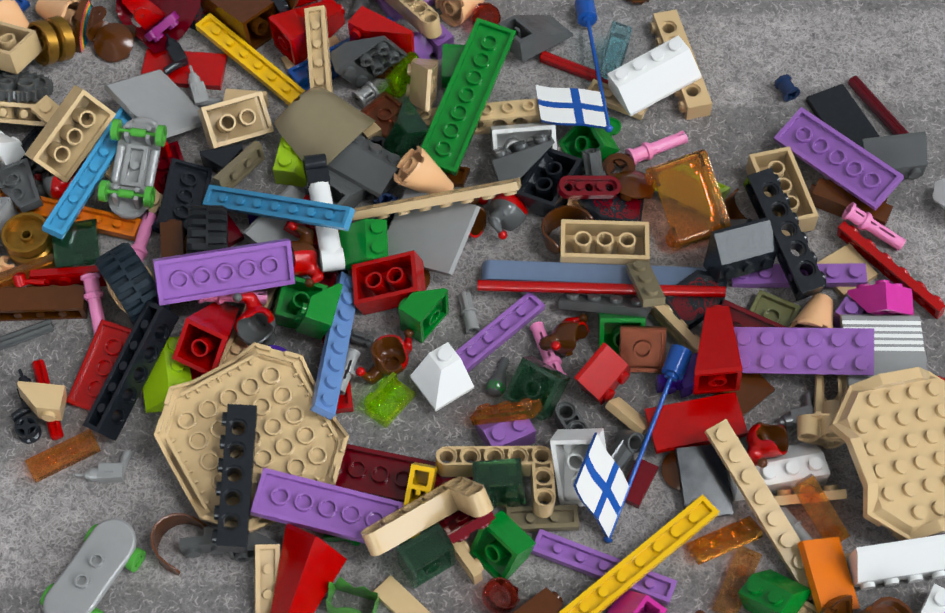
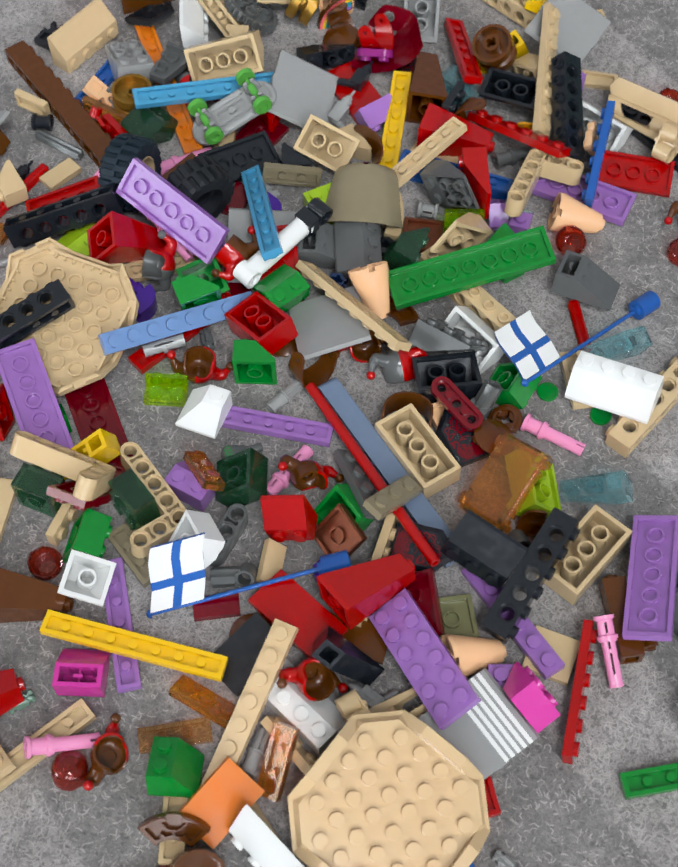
camera: 55 degrees right, 0 degrees up
(59, 354) = (60, 174): none -> tan tile
(124, 62) = (327, 55): none -> black slope
(229, 68) = (375, 113): none -> medium lavender slope
(276, 92) = (373, 140): none -> reddish brown piece
(463, 275) = (317, 373): none -> reddish brown piece
(546, 565) = (86, 578): none -> white slope
(661, 107) = (600, 416): none -> green piece
(730, 146) = (598, 489): none -> clear light blue slope
(760, 407) = (345, 658): none -> black slope

